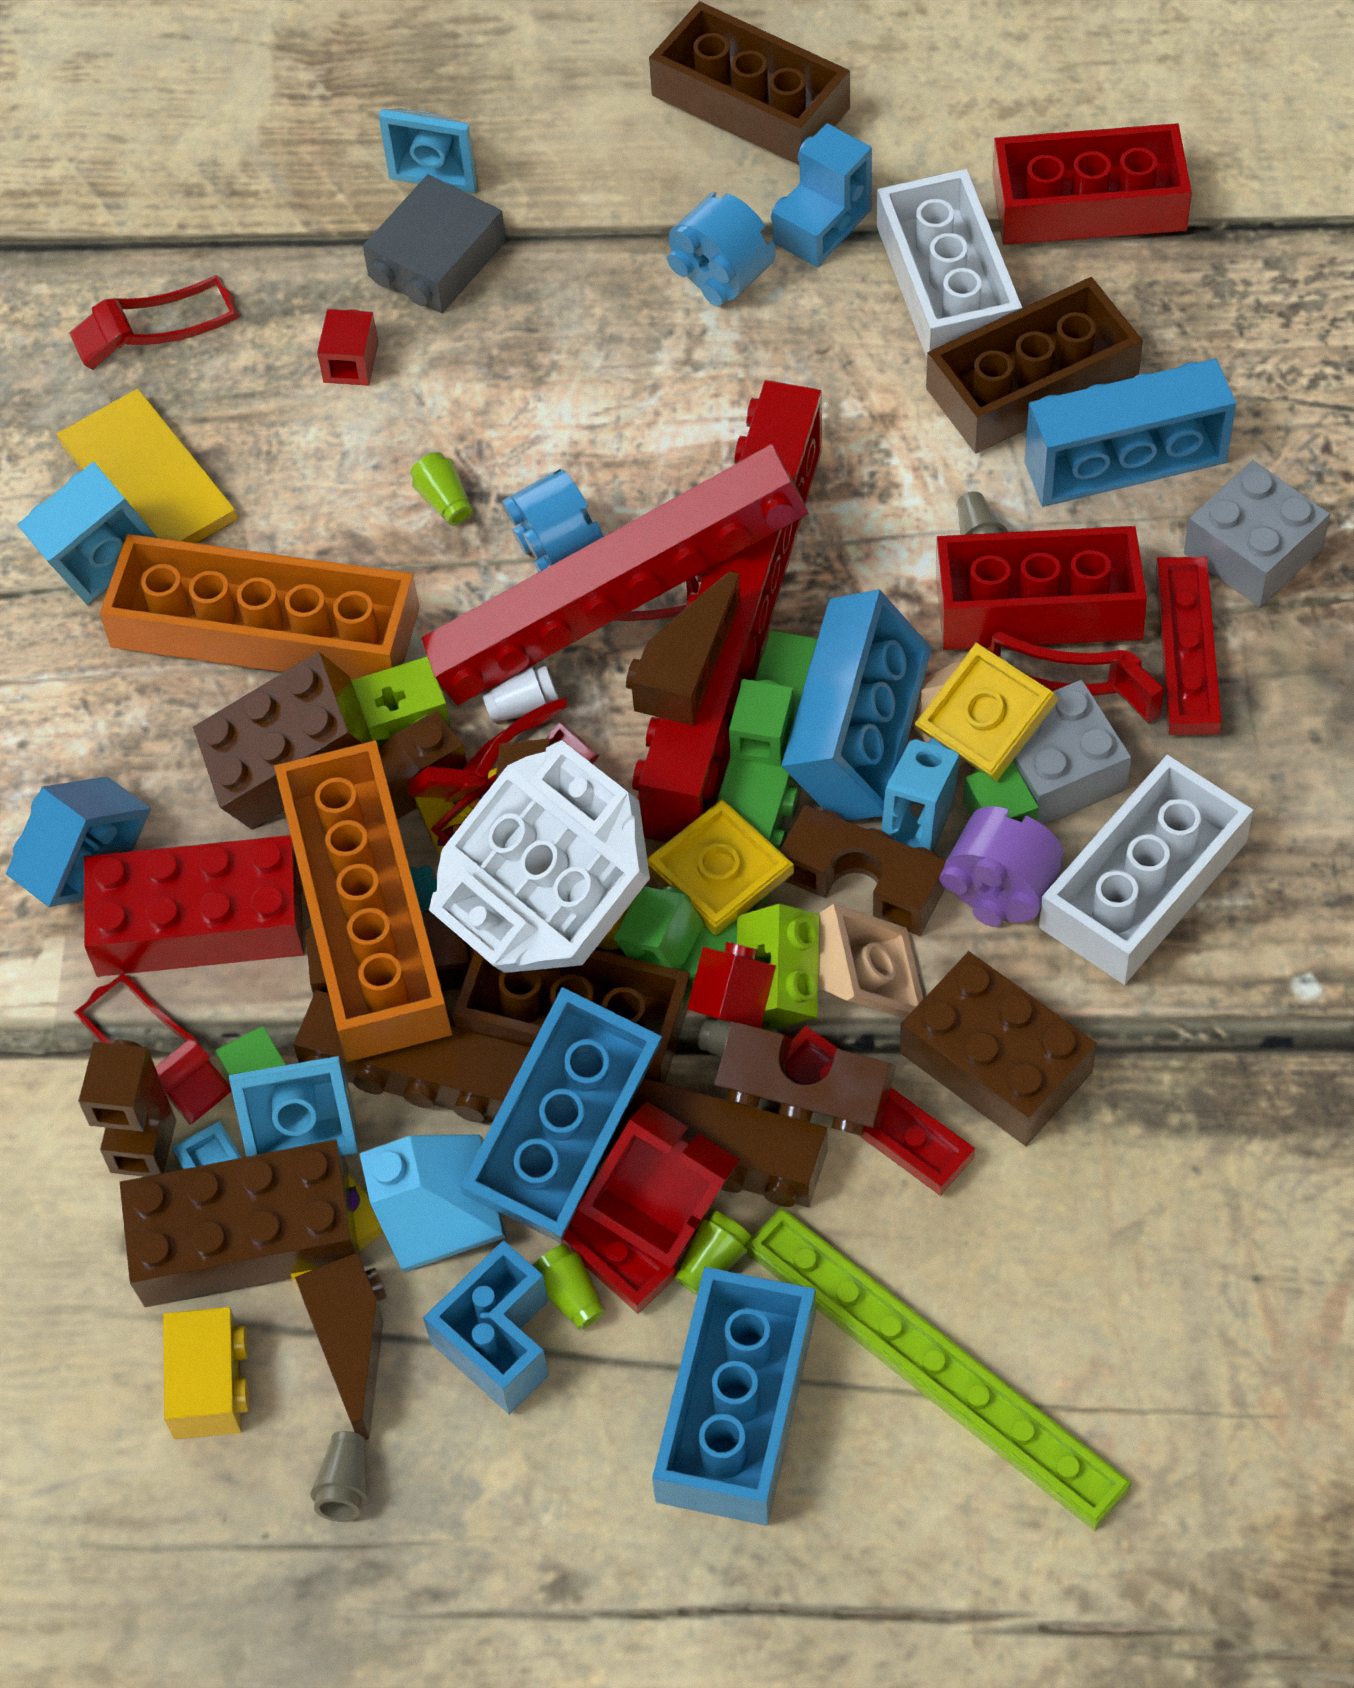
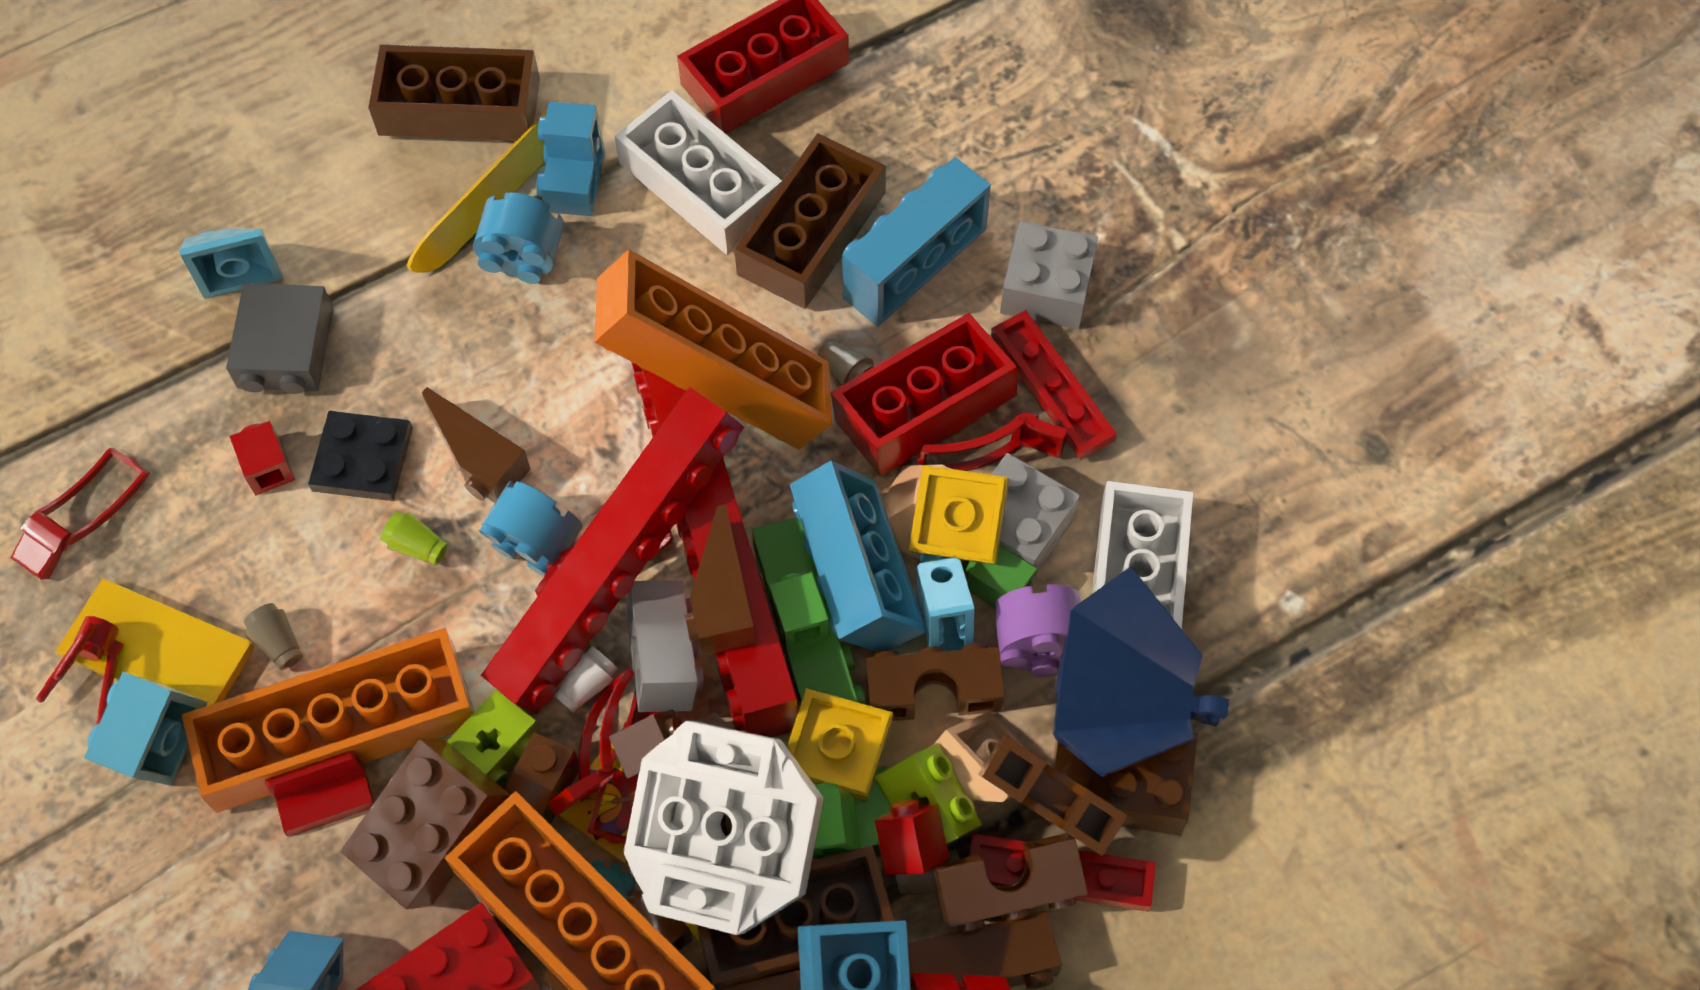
camera: 35 degrees left, 5 degrees up
(91, 436) = (92, 641): none -> red plant
(210, 670) = (321, 792): none -> red panel
(258, 512) = (273, 635): none -> dark tan cone
(443, 390) = (360, 456): none -> black plate
(553, 430) = (479, 452): none -> reddish brown slope
(599, 705) = (662, 647): none -> light grey brick
(654, 219) = (464, 217): none -> yellow piece
(828, 430) = (712, 349): none -> orange brick
(893, 1009) = (1052, 795): none -> reddish brown arch
(1053, 948) = (1127, 679): none -> dark blue panel

